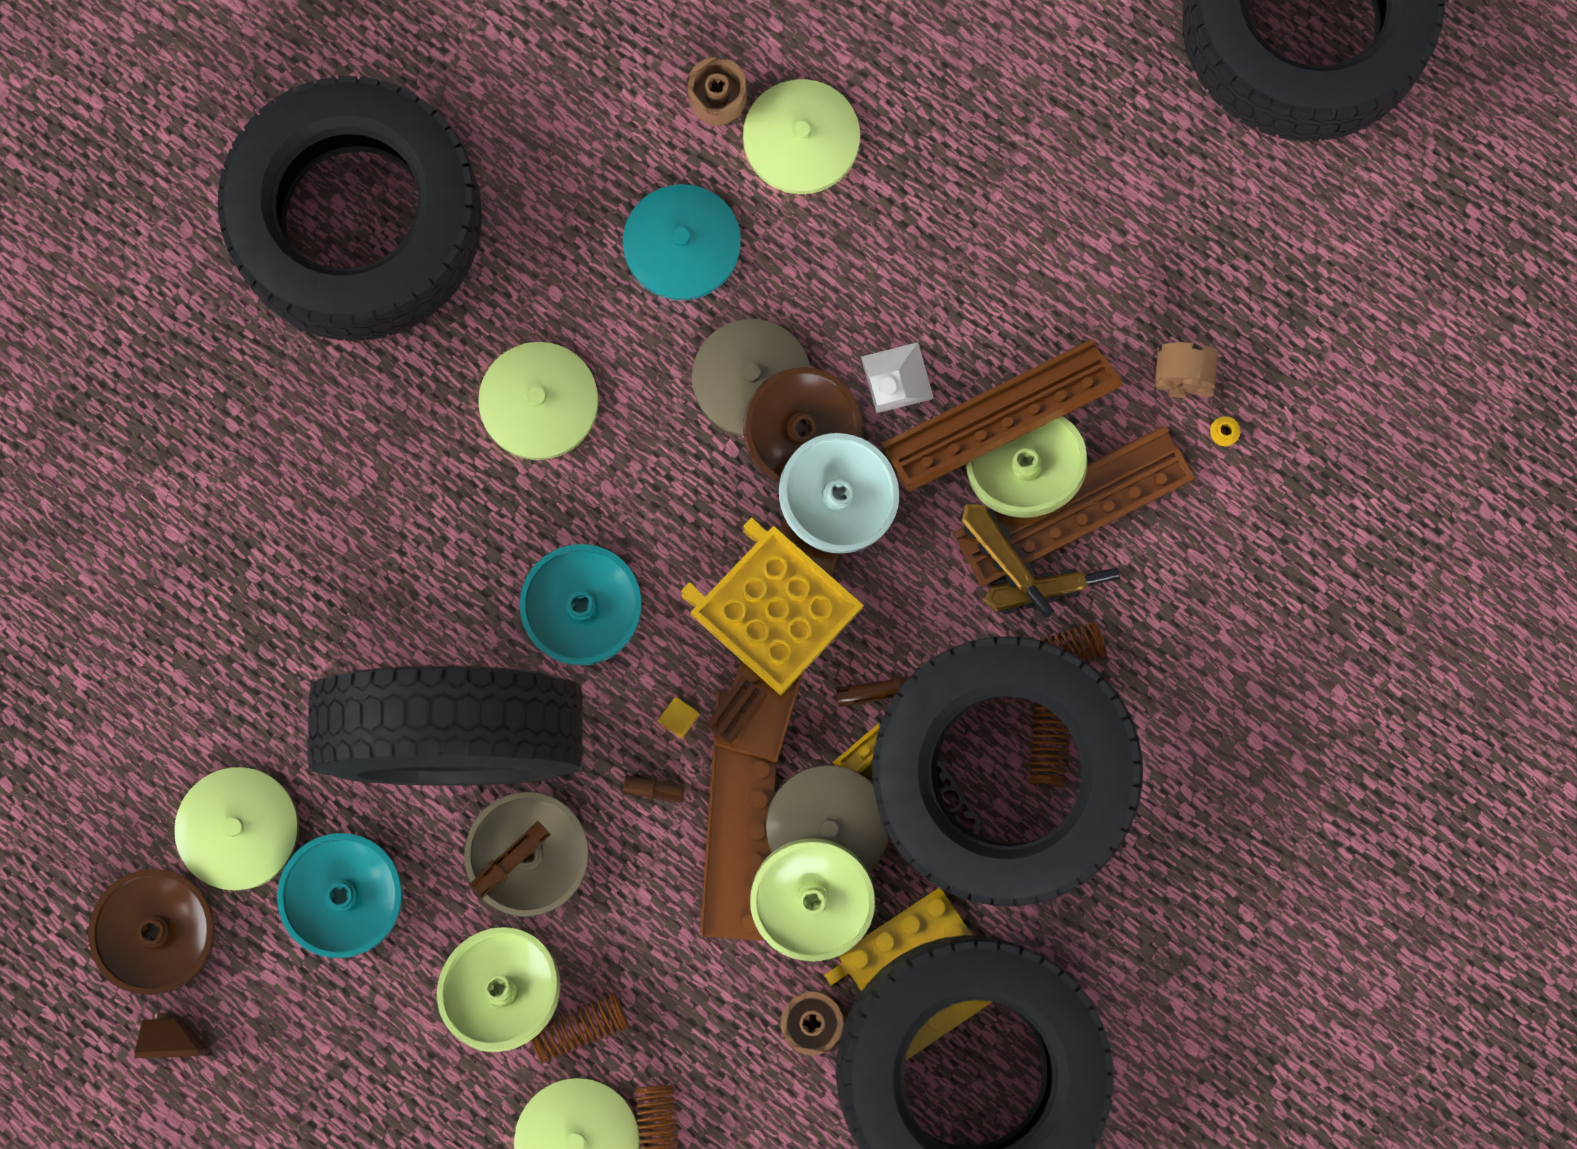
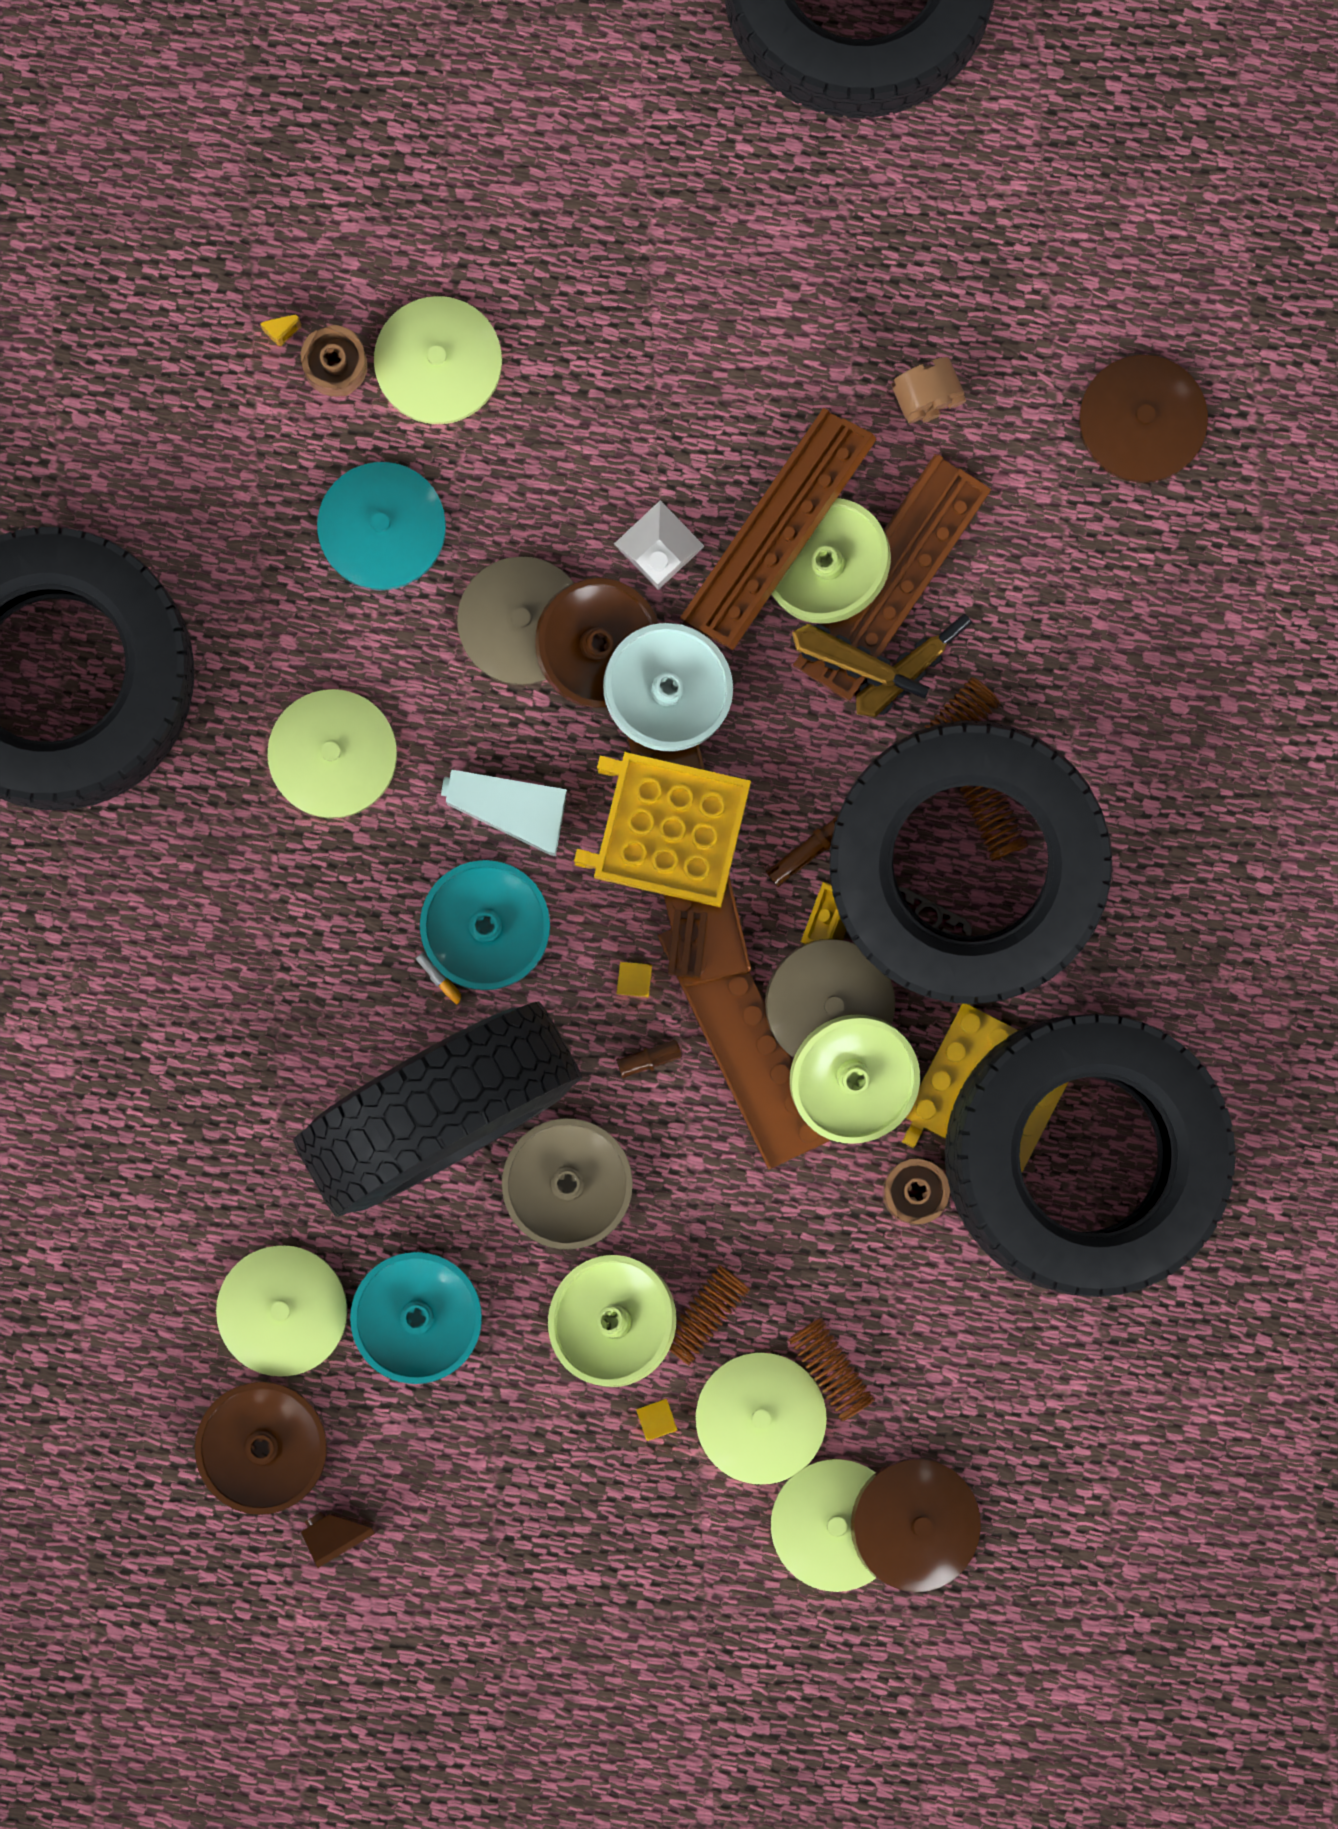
camera: 30 degrees left, 5 degrees up
(489, 1094) = (656, 1419): none -> yellow slope
(509, 859) = (557, 1192): reddish brown pin -> none
(522, 637) = (439, 979): none -> piece
(660, 523) = (514, 807): none -> light aqua slope
(691, 44) = (281, 328): none -> yellow slope
(1221, 439) = (991, 437): yellow plate -> none
(1353, 489) = (1143, 418): none -> reddish brown dish

